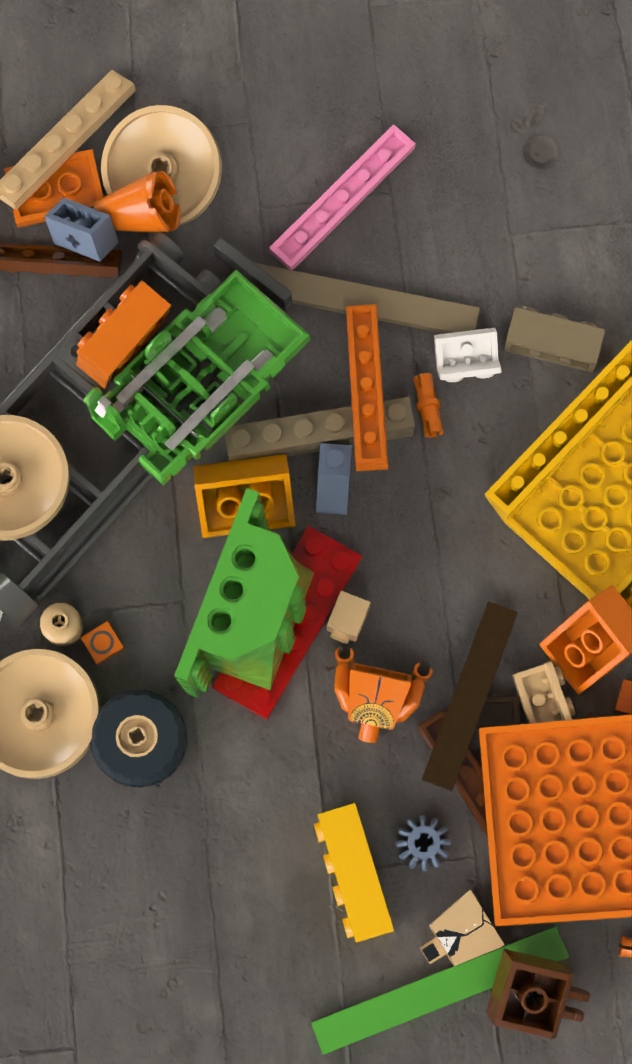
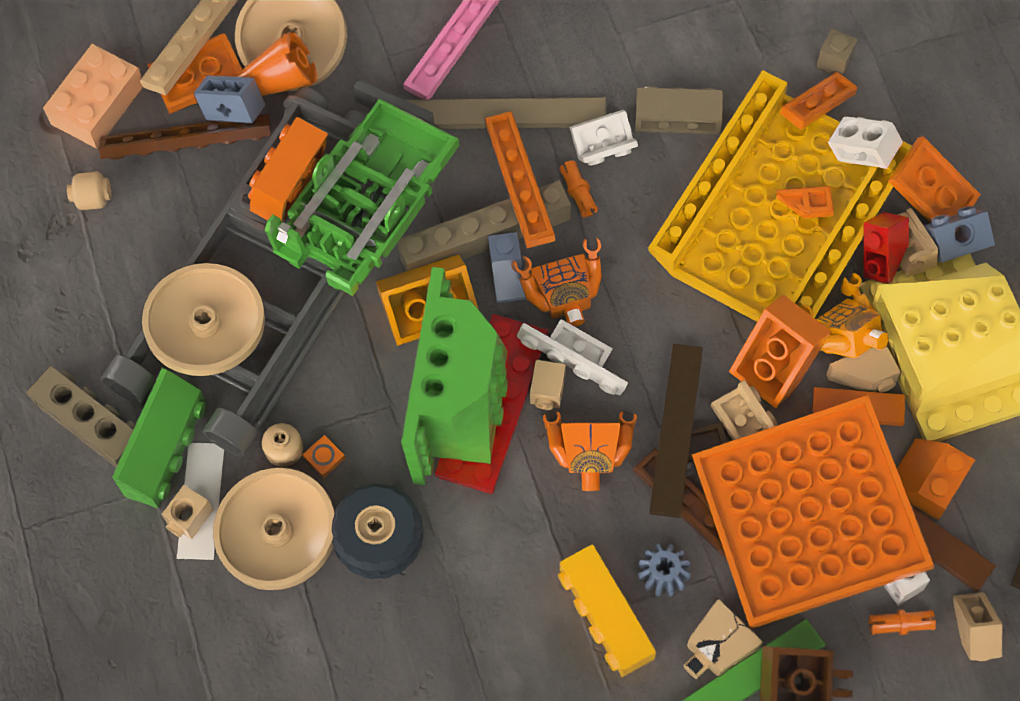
camera: 10 degrees left, 10 degrees down
(387, 587) = (577, 351): none -> white bracket
(388, 511) = (563, 285): none -> orange torso

